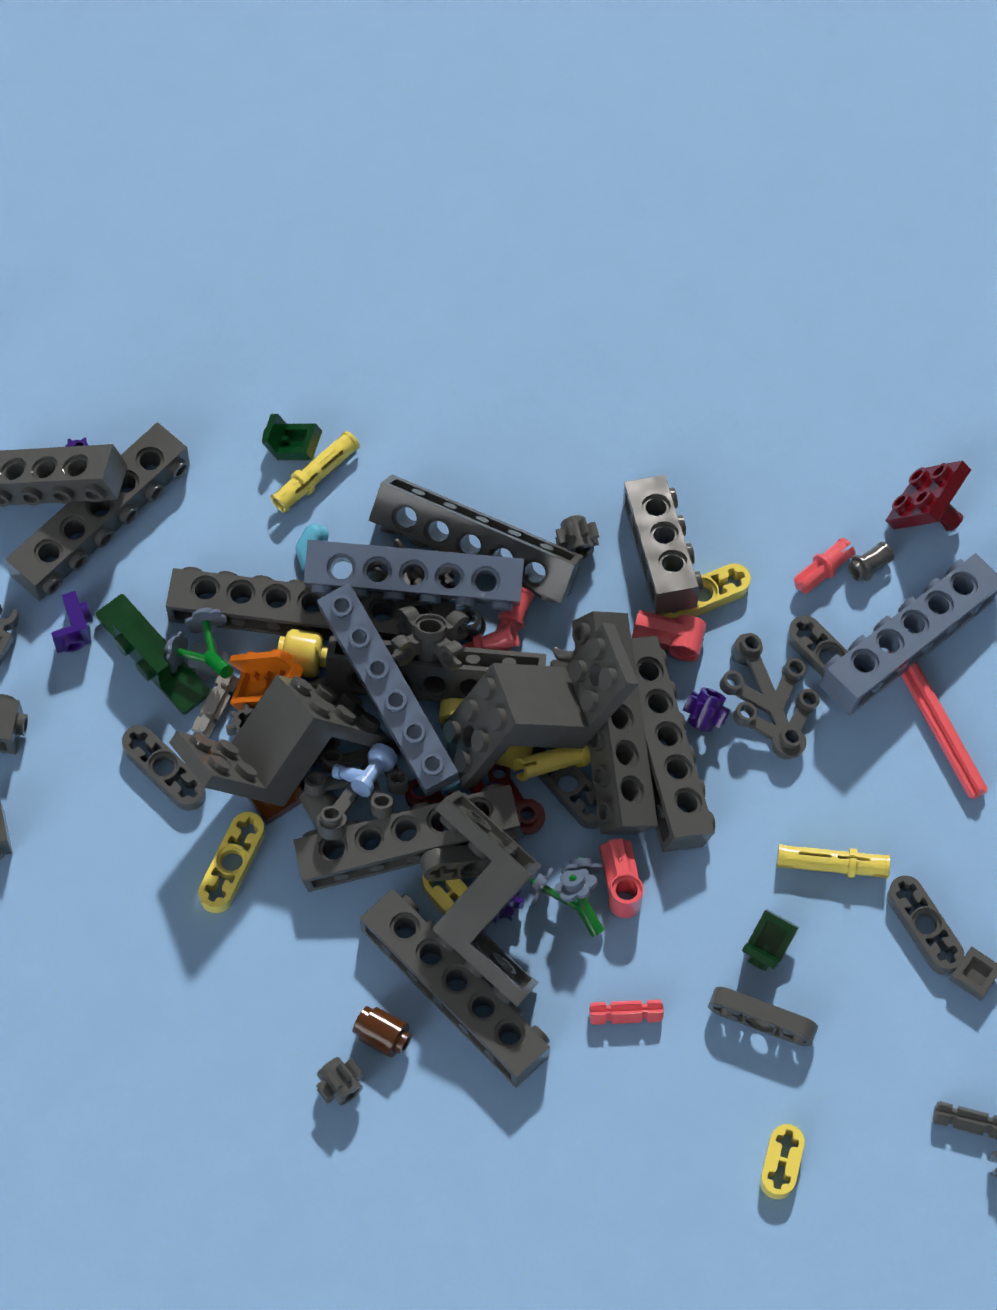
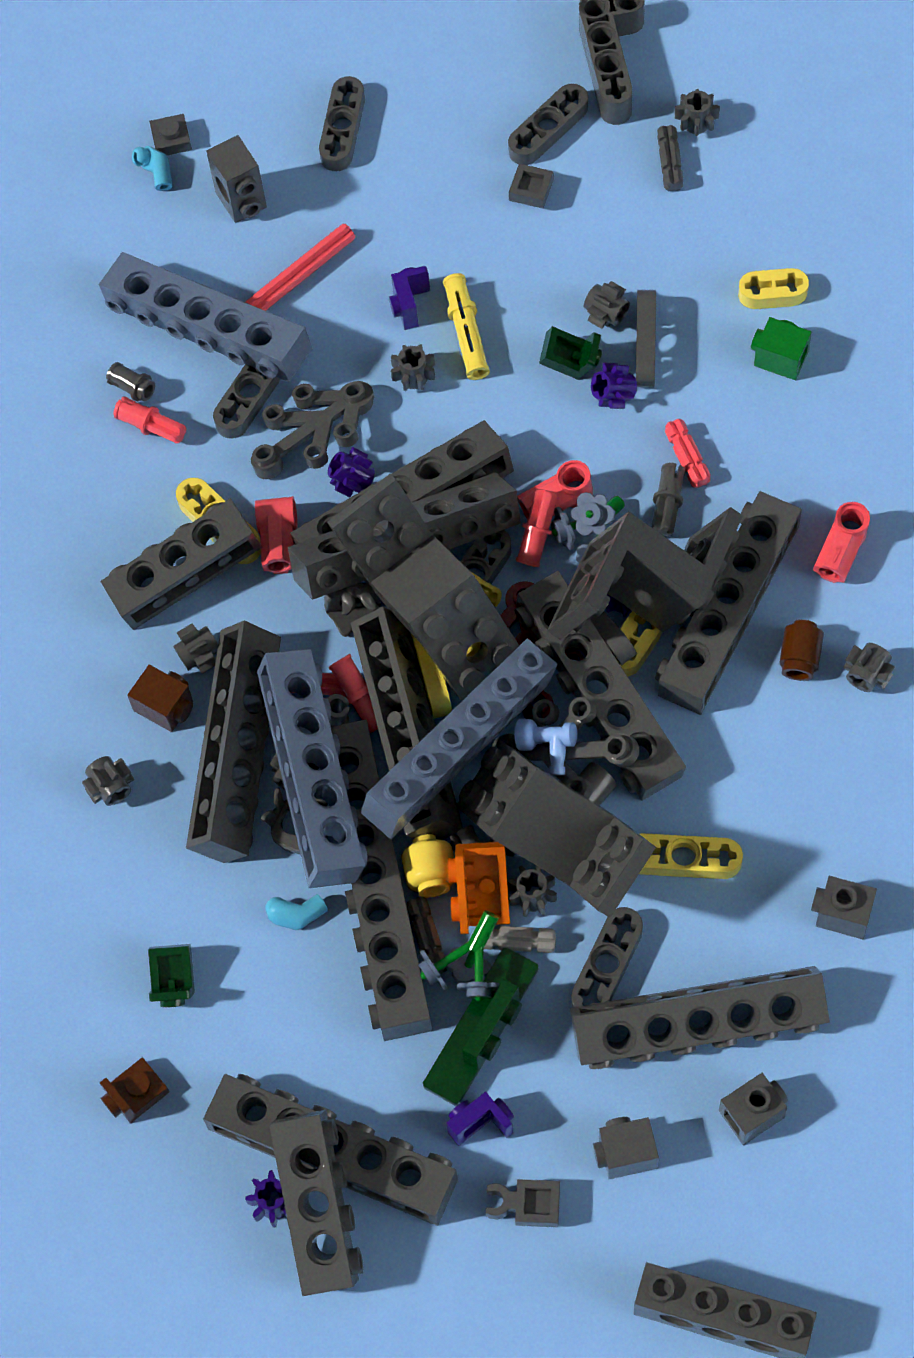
camera: 100 degrees left, 0 degrees up
(80, 816) = (804, 1016): none -> dark grey brick
(126, 970) = (844, 906): none -> dark grey brick
(210, 389) = (133, 1091): none -> reddish brown bracket
(247, 638) = (425, 929): none -> dark grey axle
(304, 480) = (215, 944): light yellow pin -> none
(429, 638) = (368, 722): dark grey pin -> none
(473, 1109) = (842, 543): none -> coral piece
(480, 438) = (108, 780): none -> dark grey gear
(542, 499) = (161, 697): none -> reddish brown brick
(580, 973) = (668, 499): none -> dark grey axle
(587, 843) = (537, 527): none -> coral axle
(708, 1138) = (781, 347): none -> green brick
(717, 965) = (613, 386): none -> dark purple gear
(809, 794) = (412, 367): none -> dark grey gear
(810, 991) = (606, 304): none -> dark grey gear
(879, 813) = (405, 285): none -> dark purple bracket
(902, 907) = (502, 224): dark grey beam -> none
(929, 497) = (45, 341): dark red plate -> none

